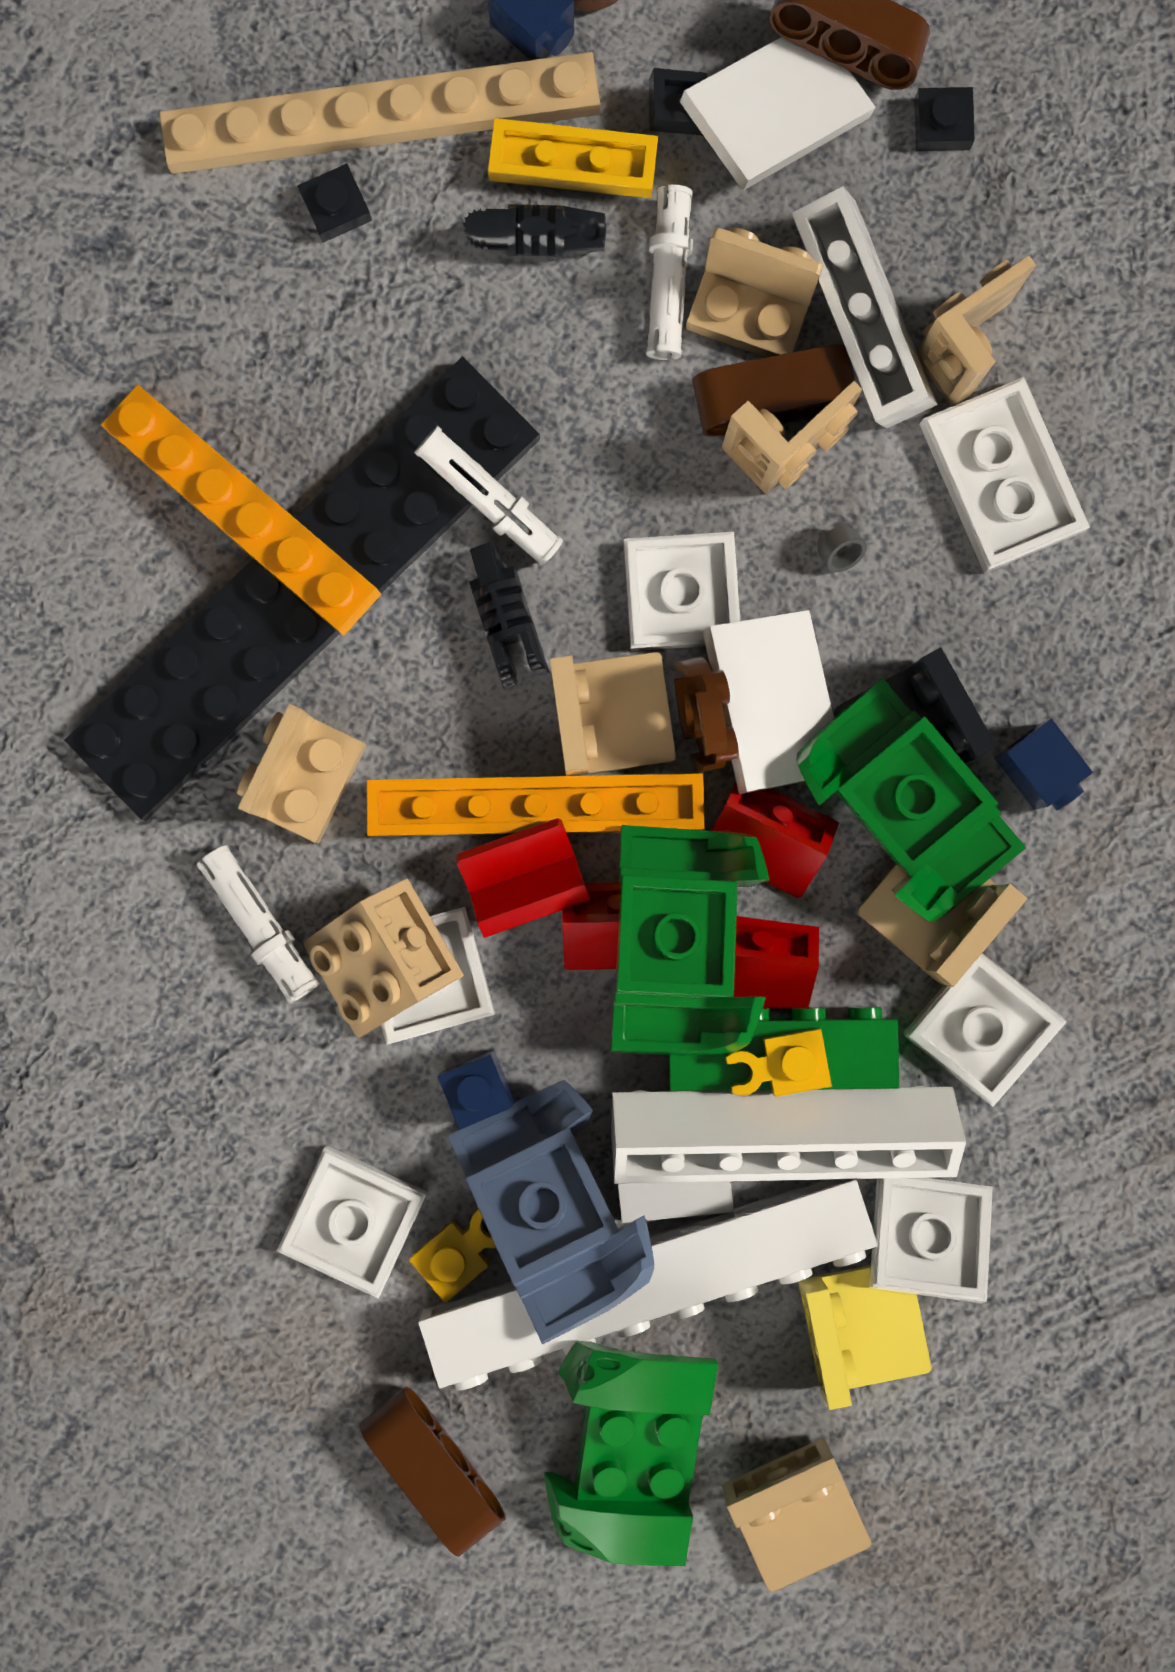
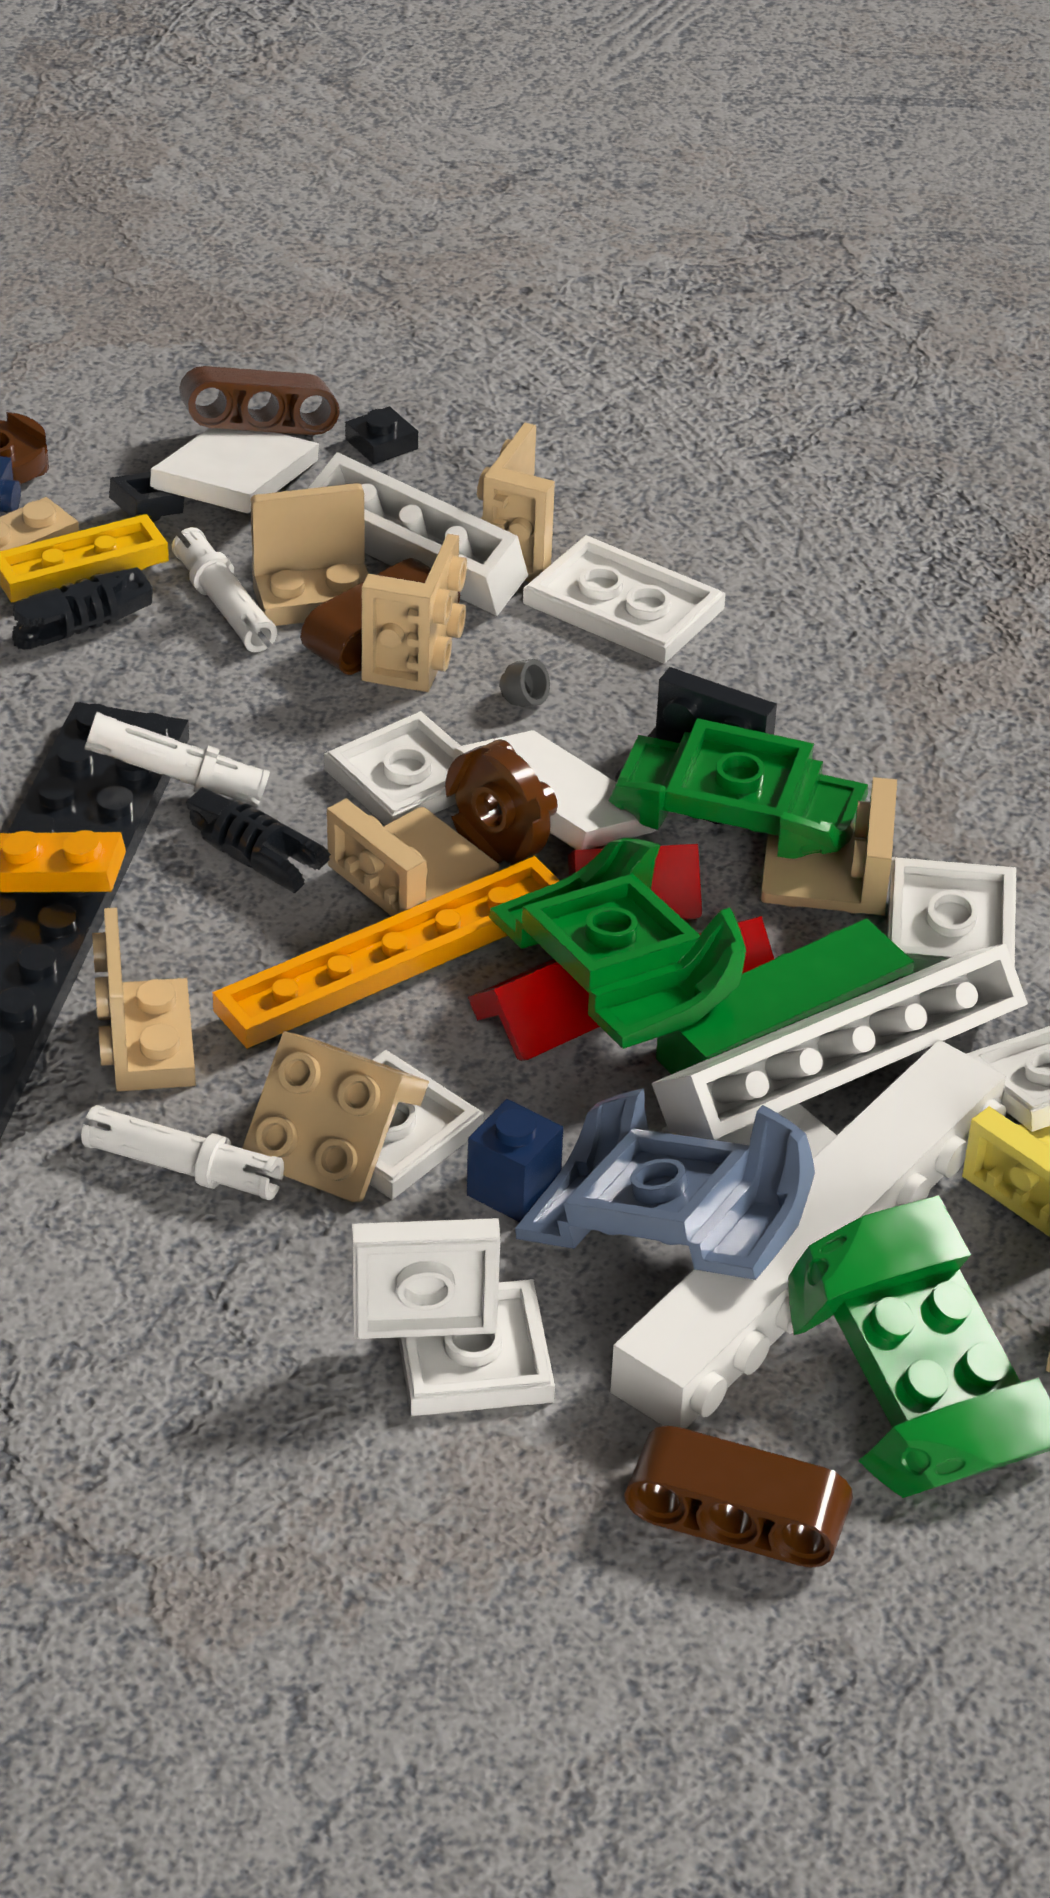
camera: 35 degrees left, 45 degrees down
(312, 1206) = (425, 1278): none -> white tile
(453, 1257) = (603, 1314): yellow plate -> none
(522, 877) = (421, 991): red panel -> none
(791, 1064) = (793, 977): yellow plate -> none
(1045, 767) = (837, 727): dark blue brick -> none

